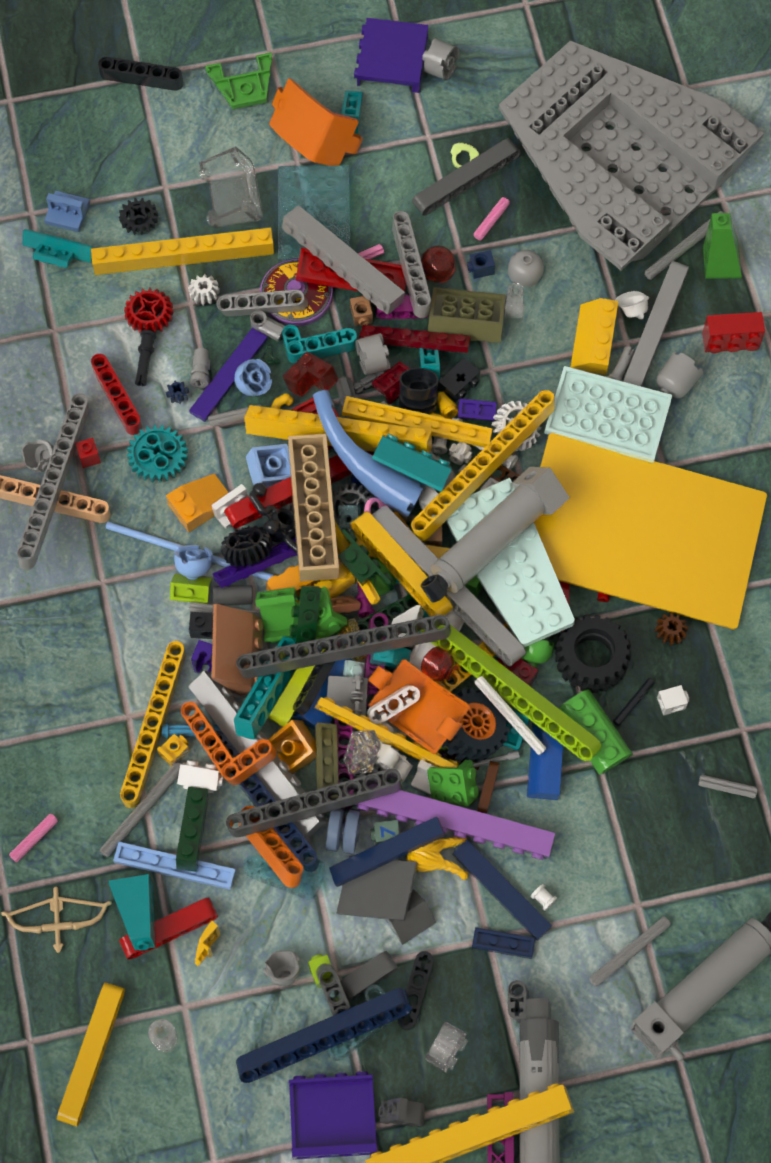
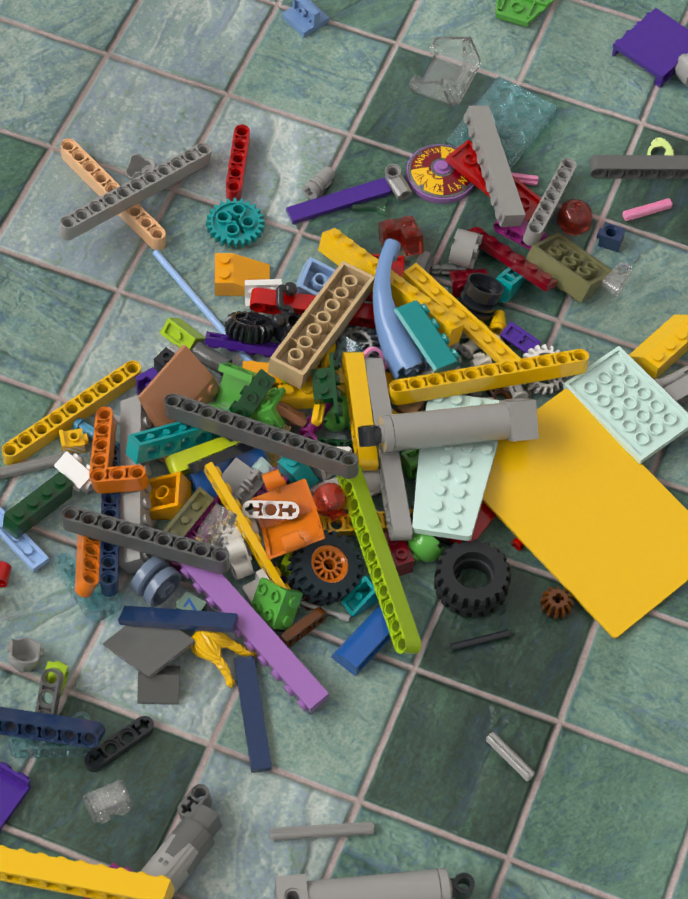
camera: 30 degrees right, 10 degrees down
(55, 249) = (274, 37): teal bracket -> none
(88, 452) = (181, 191): red brick -> none
(138, 216) = (357, 50): black gear -> none
(146, 350) = (286, 146): black pin -> none
(149, 301) = (300, 120): red gear -> none
(177, 392) = (286, 189): dark blue gear -> none
(182, 251) = (373, 93): yellow brick -> none
(192, 561) = (197, 313): light blue cylinder -> none
(203, 289) = (367, 129): white gear -> none
(228, 417) = (309, 229): light grey axle -> none
(253, 377) = (354, 210): light blue cylinder -> none
(255, 298) = (410, 164): light grey beam -> none
(281, 400) = (368, 242): yellow arm -> none
(313, 127) = (547, 63): orange panel -> none
(320, 341) = (427, 219): teal beam -> none
(352, 106) = (588, 70): teal slope -> none
(361, 304) = (482, 214): medium nougat brick -> none
(368, 974) = (97, 705): dark grey beam -> none
(402, 1112) = (32, 828): dark grey pin -> none
(459, 380) = (524, 310): black brick -> none
(503, 943) = (221, 755): dark blue tile -> none
(510, 715) = (361, 577): white axle -> none
(525, 268) = (647, 261): light grey cylinder -> none
(544, 897) = (282, 740): white bush -> none
(590, 715) = (432, 626): bright green container -> none
(672, 700) = (514, 658): white brick -> none

